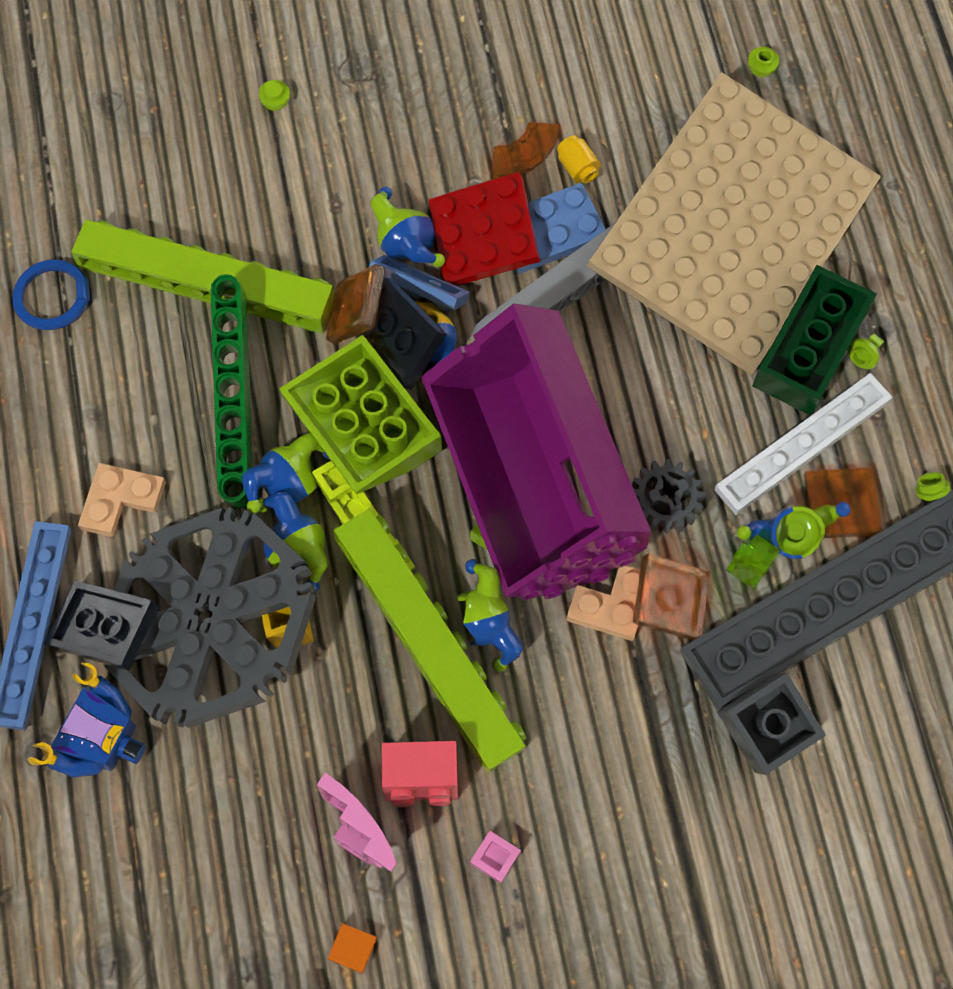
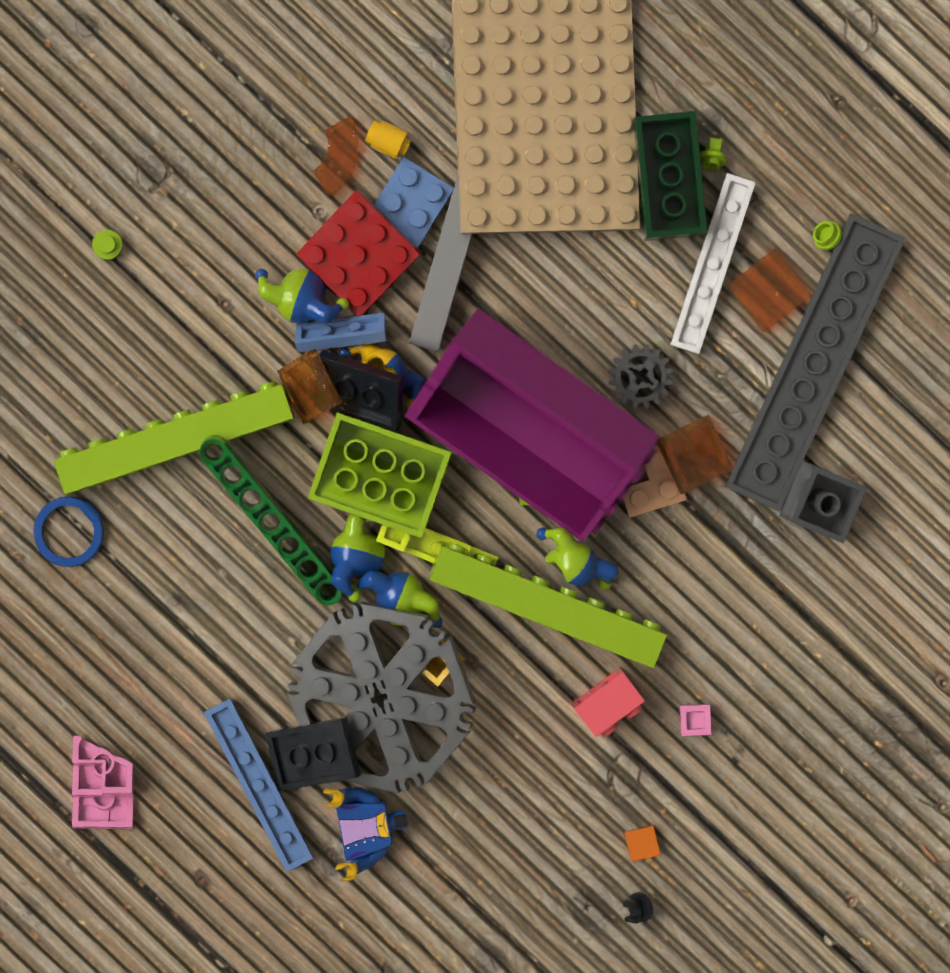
camera: 35 degrees left, 20 degrees up
(117, 488) = (237, 650): light nougat plate -> none
(358, 830) = (594, 770): bright pink slope -> none
(753, 561) = (734, 385): clear neon green brick -> none
(795, 528) = (749, 342): lime piece -> none

